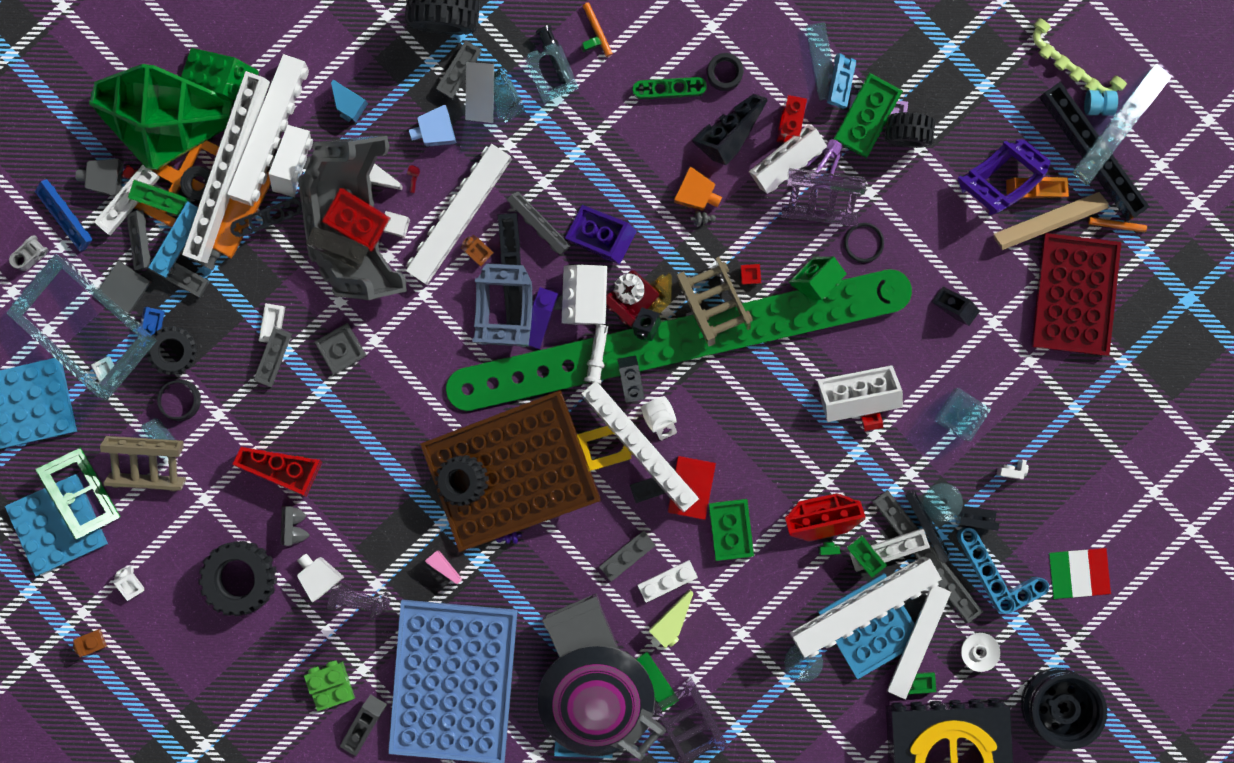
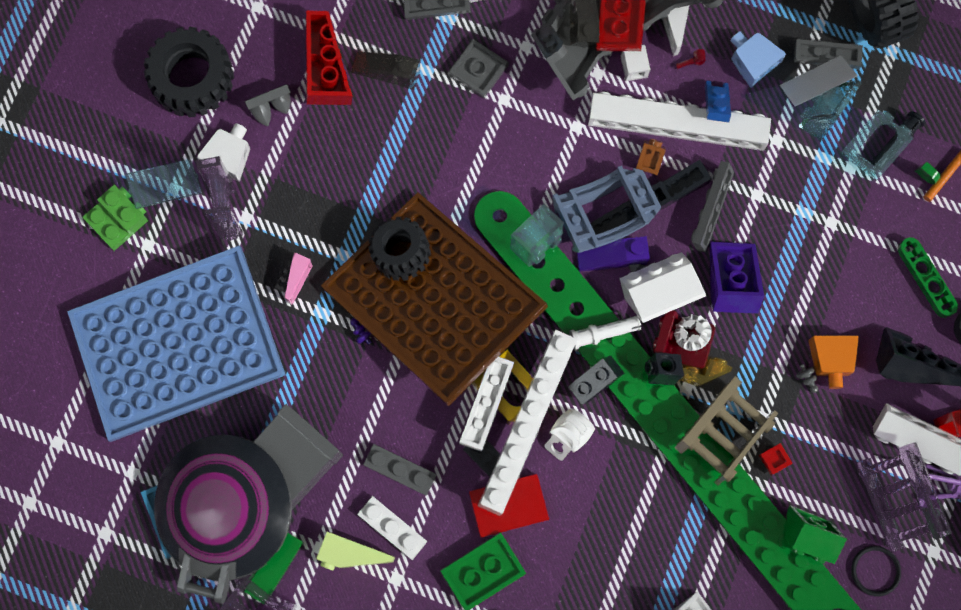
camera: 60 degrees right, 10 degrees down
(306, 420) = (388, 68): none -> clear smoke slope
(320, 637) = (163, 183): none -> clear light blue piece
(363, 725) = (88, 270): dark grey slope -> none
(459, 178) = (717, 102): none -> blue hinge
(500, 370) = (537, 235): none -> clear light blue brick
(611, 470) = (486, 403): none -> white plate

